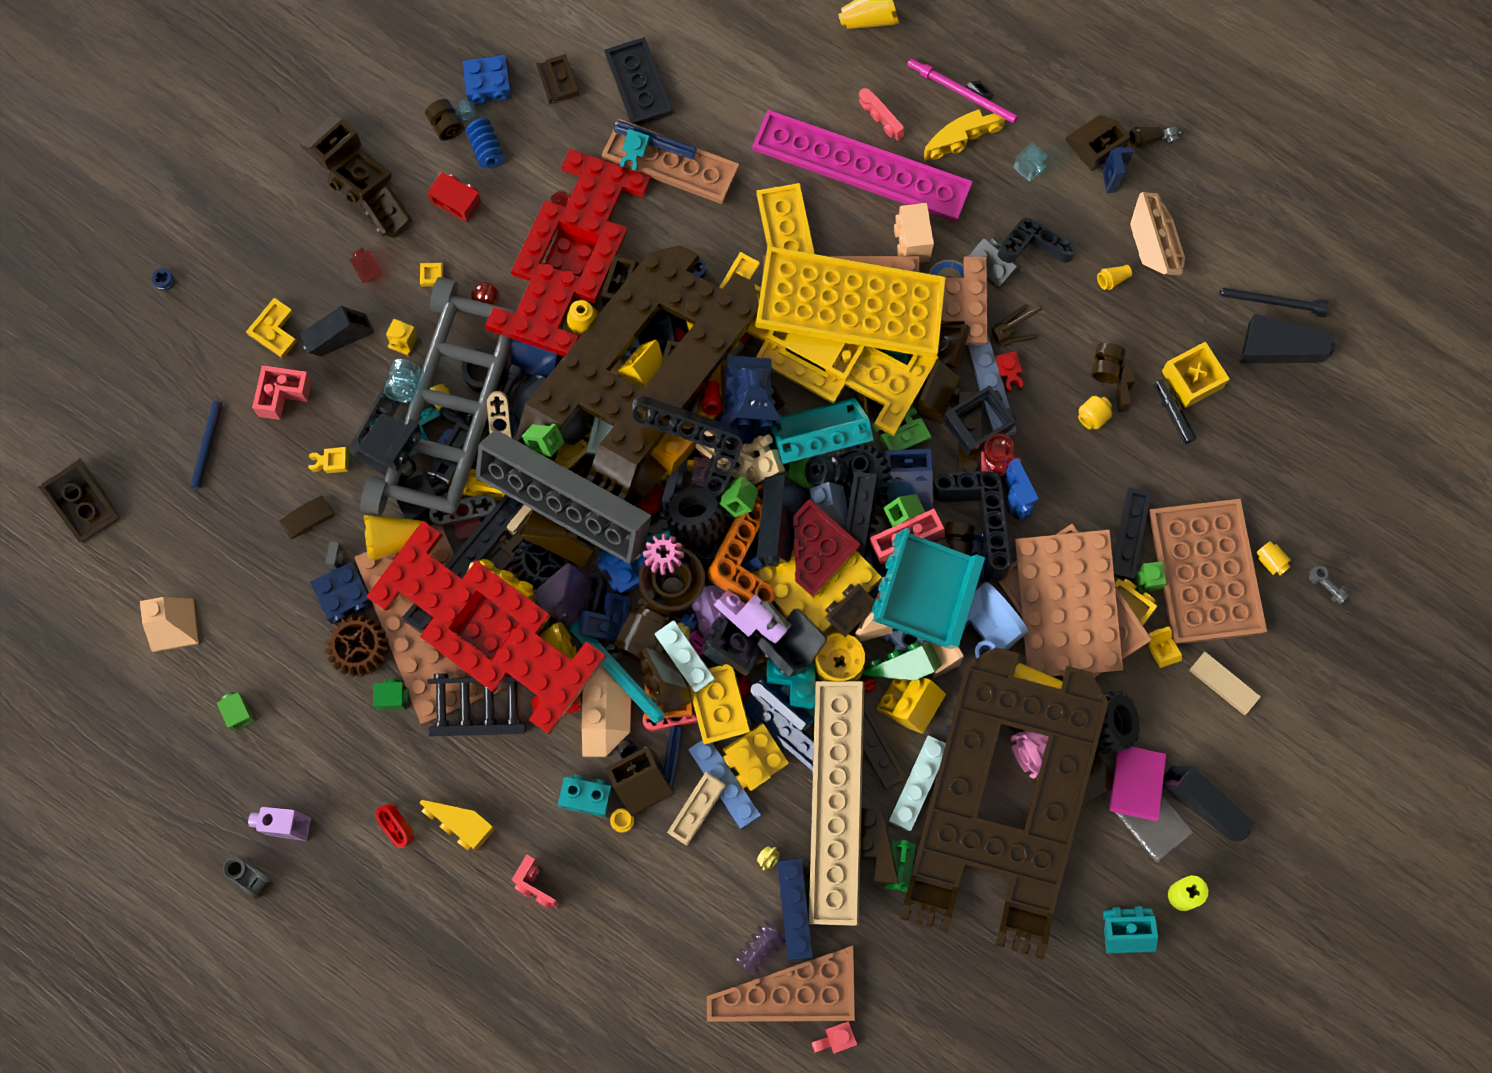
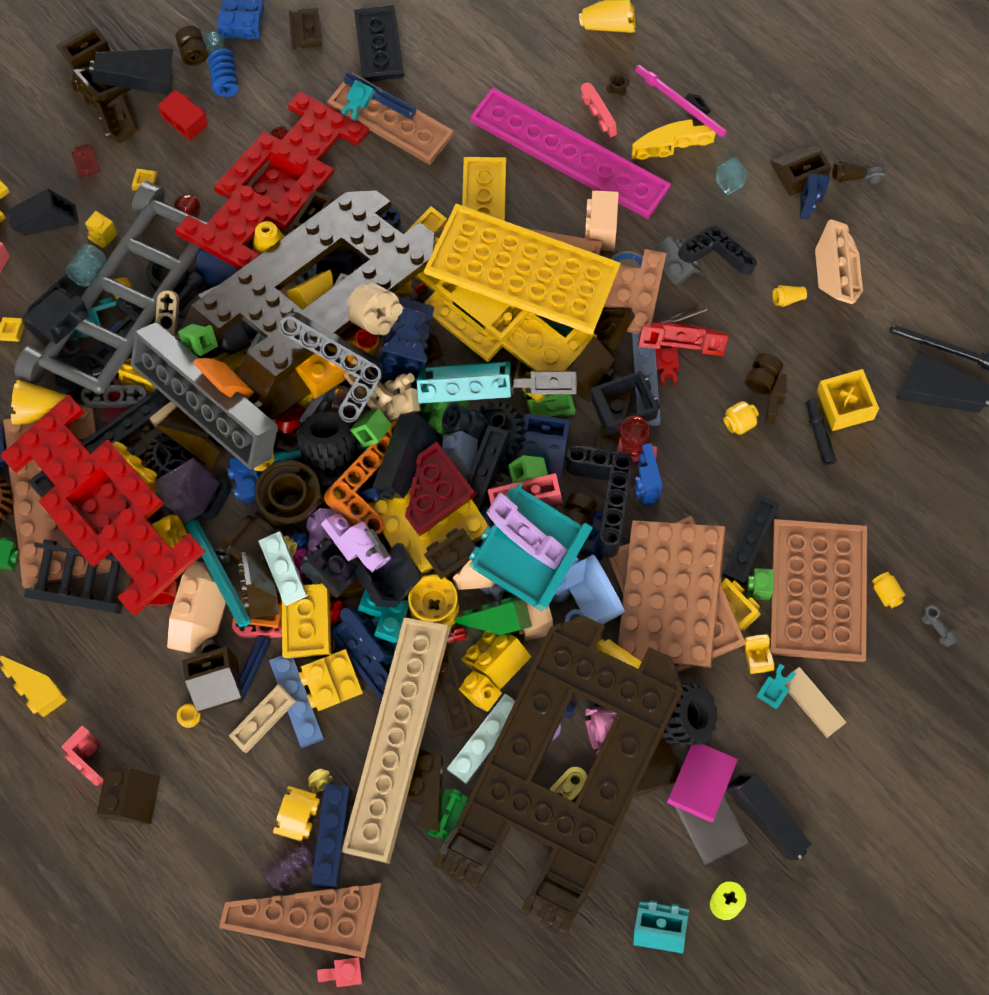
camera: 15 degrees right, 5 degrees down
(393, 157) = (134, 69): none -> black slope
(582, 476) = (223, 377): none -> orange slope
(584, 912) = (128, 795): none -> dark brown slope
(585, 796) = (158, 684): teal brick -> none
(610, 623) = (219, 527): dark blue plate -> none
(672, 556) = (288, 472): bright pink gear -> none
(717, 375) = (374, 308): none -> tan brick
(755, 896) = (296, 813): none -> yellow brick
(894, 78) = (618, 80): none -> dark brown plate
(902, 415) = (547, 382): none -> hinge
(904, 738) = (480, 691): none -> yellow brick
(922, 577) = (524, 533): none -> lavender slope
(1009, 816) = (564, 786): none -> light yellow plate
(1021, 339) = (683, 336): none -> slope
(1186, 679) = (774, 690): none -> teal plate

